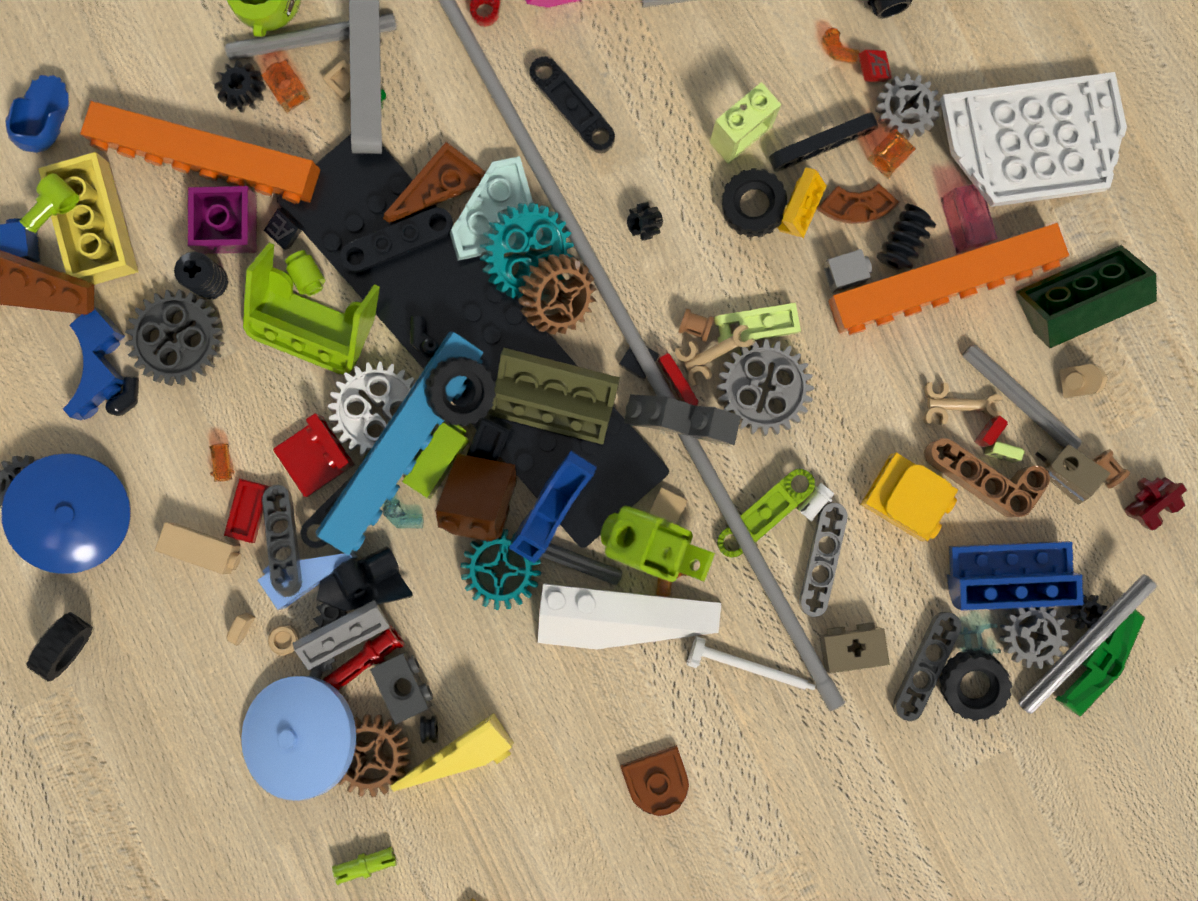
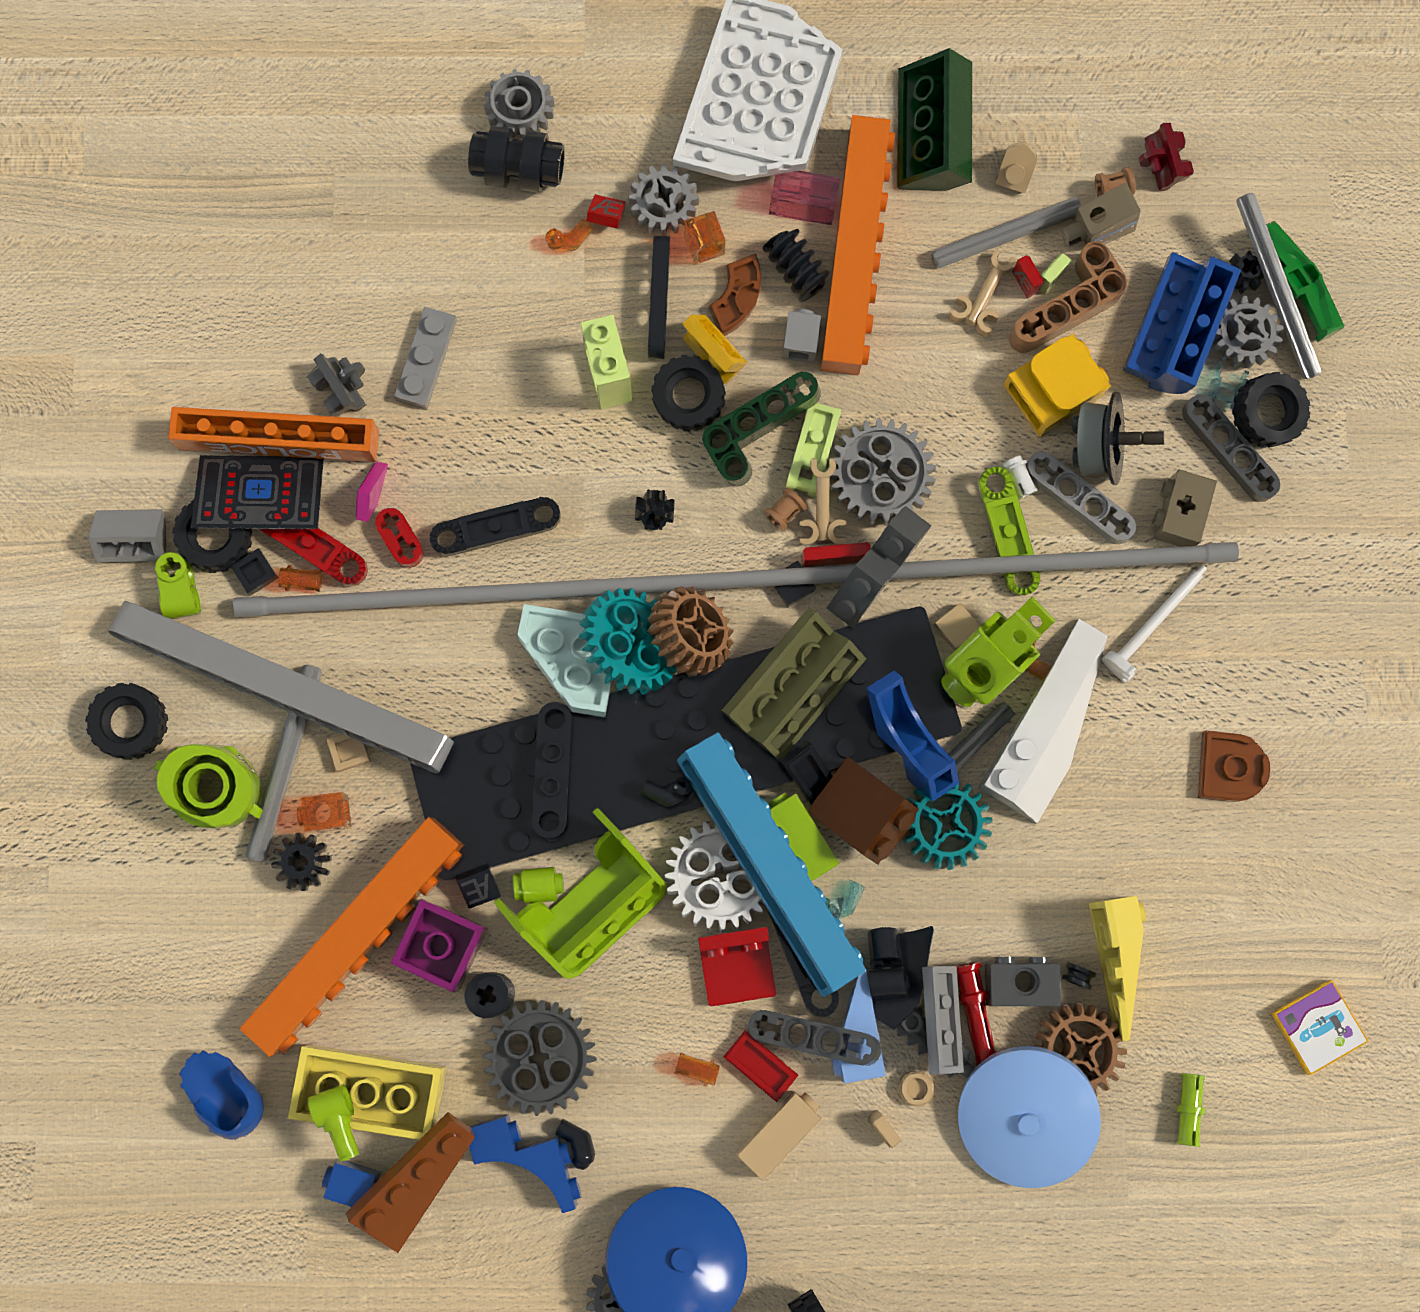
camera: 70 degrees left, 5 degrees down
(442, 178) = (508, 693): dark orange wing -> none
(482, 399) = (729, 787): black tyre -> none
(523, 32) = (406, 533): none -> red beam
(757, 273) = (765, 423): none -> dark green beam
(879, 555) = (1103, 438): none -> piece

